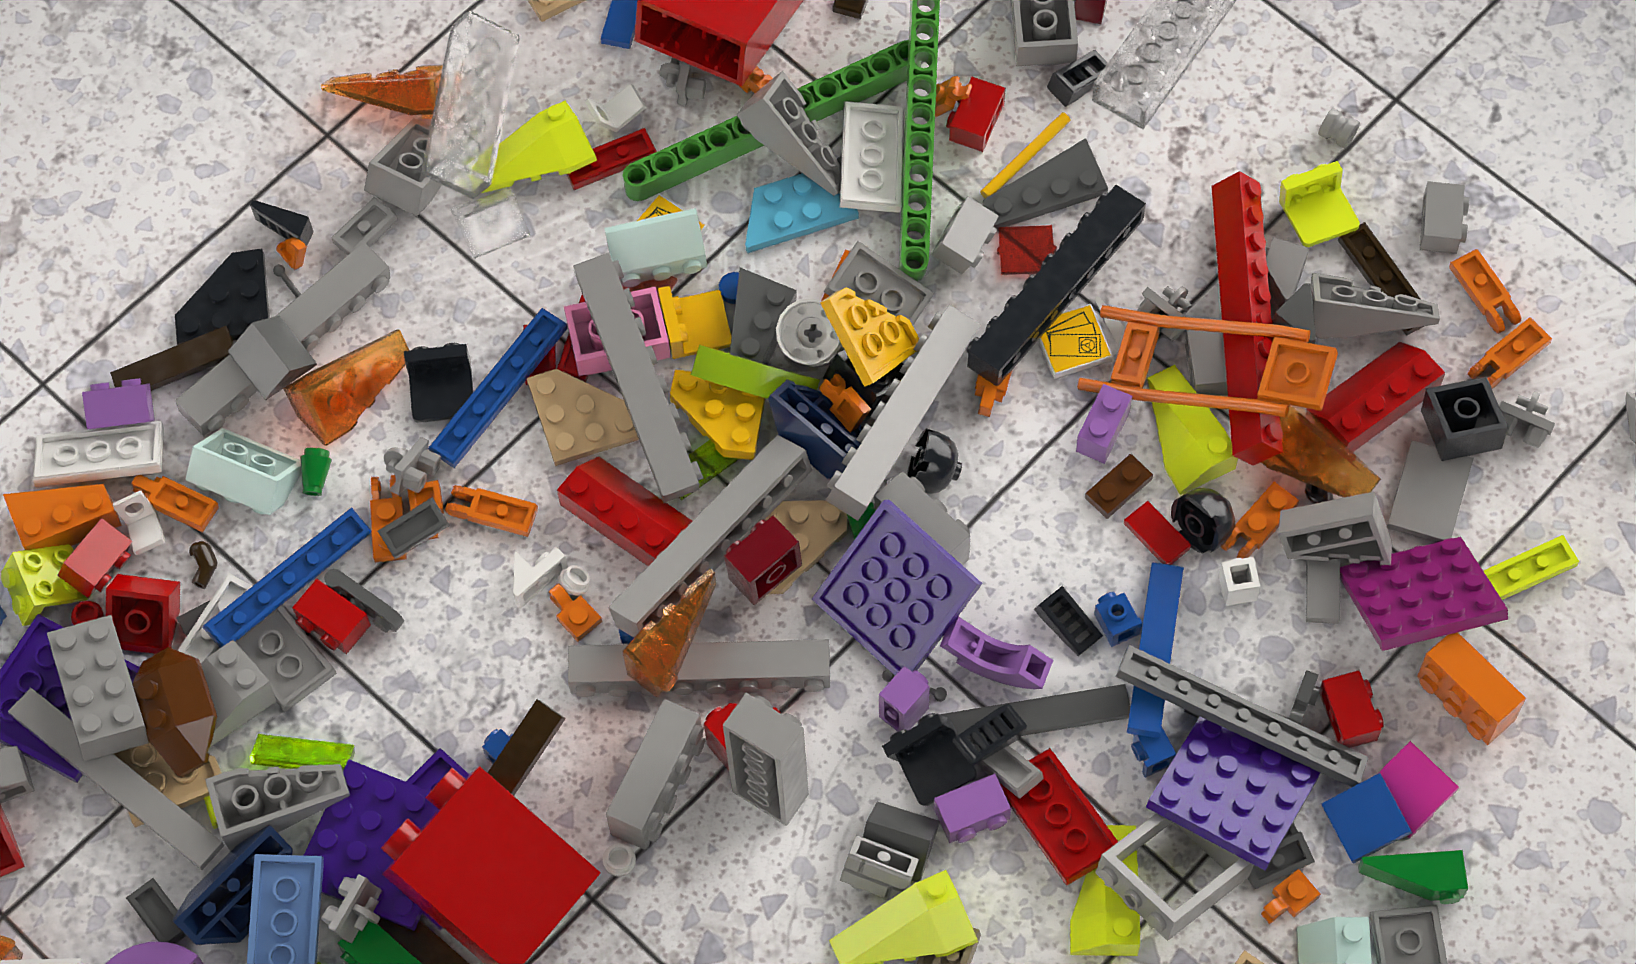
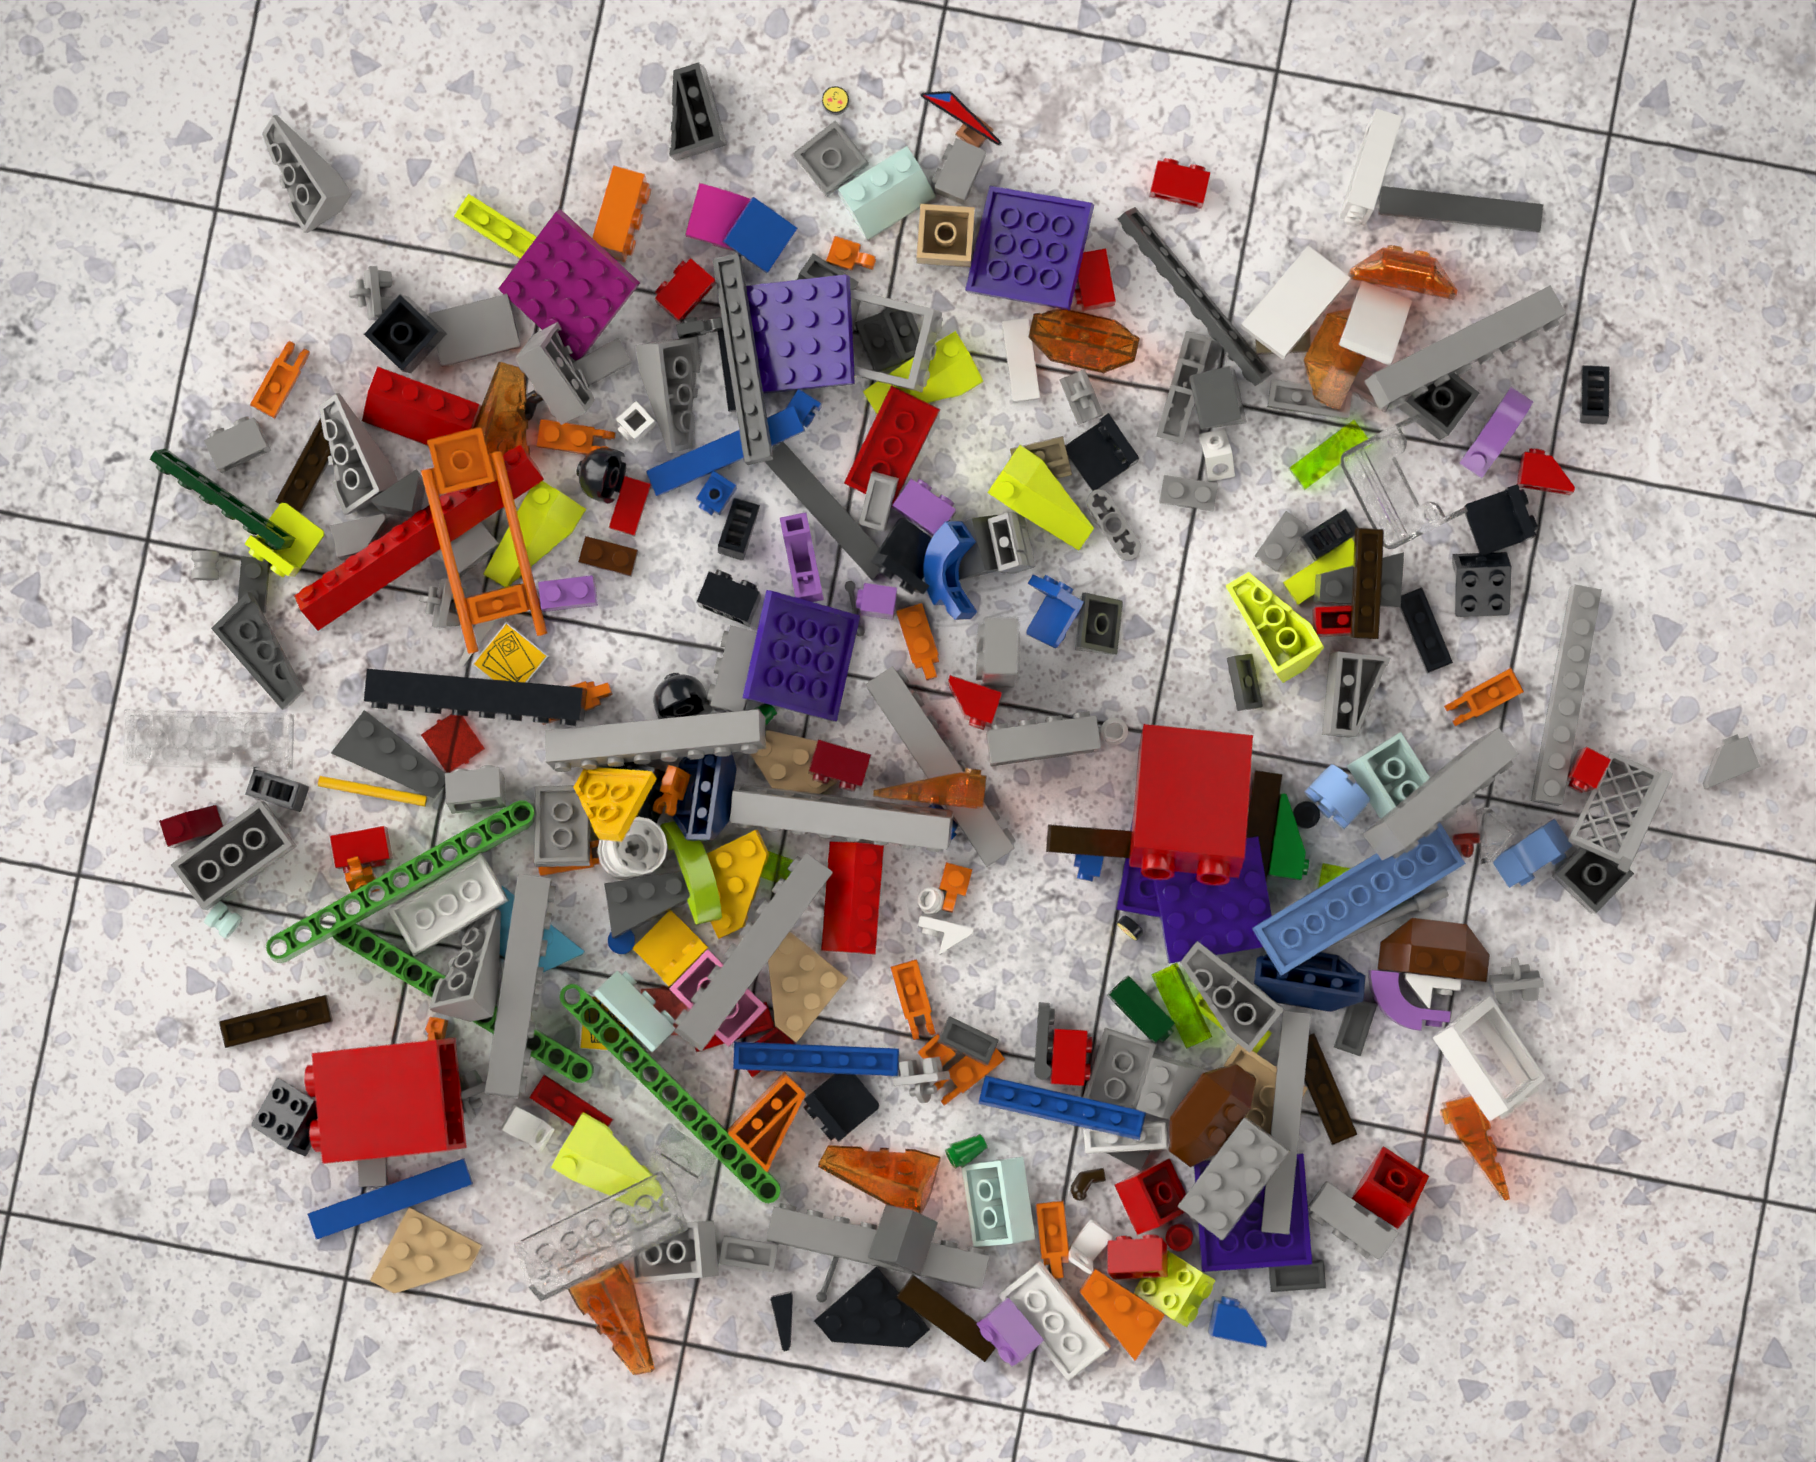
camera: 125 degrees left, 20 degrees up
(116, 842) = (1326, 1095): none -> dark brown tile
(292, 252) = (801, 1296): orange tile -> none
(323, 705) = (1141, 1010): none -> dark green window
(355, 909) = (1274, 876): light grey hips -> none
(413, 751) = (1130, 927): none -> black tile
(472, 307) = (767, 1120): none -> orange wedge
(543, 240) = (656, 1088): none -> bright green beam
(739, 907) = (1099, 624): none -> dark grey slope
(750, 162) = (518, 986): none -> light grey brick
(778, 871) = (1055, 612): none -> blue bracket
(841, 726) = (919, 639): none -> orange hinge
(892, 783) = (942, 569): none -> blue arch
(1002, 561) = (729, 598): none -> black brick
(1004, 720) = (851, 517): black slope -> none
(1177, 876) = (888, 338): none -> dark grey slope
(1227, 128) = (256, 647): none -> dark grey wing
(1262, 641) = (669, 379): none -> light grey wedge
(1288, 157) = (254, 579): none -> dark grey plate
(1395, 172) = (215, 495): none -> dark green plate
(1423, 874) = (774, 167): green slope -> none
(1512, 352) = (322, 332): orange hinge -> none
(1539, 827) = (695, 115): none -> dark grey wedge

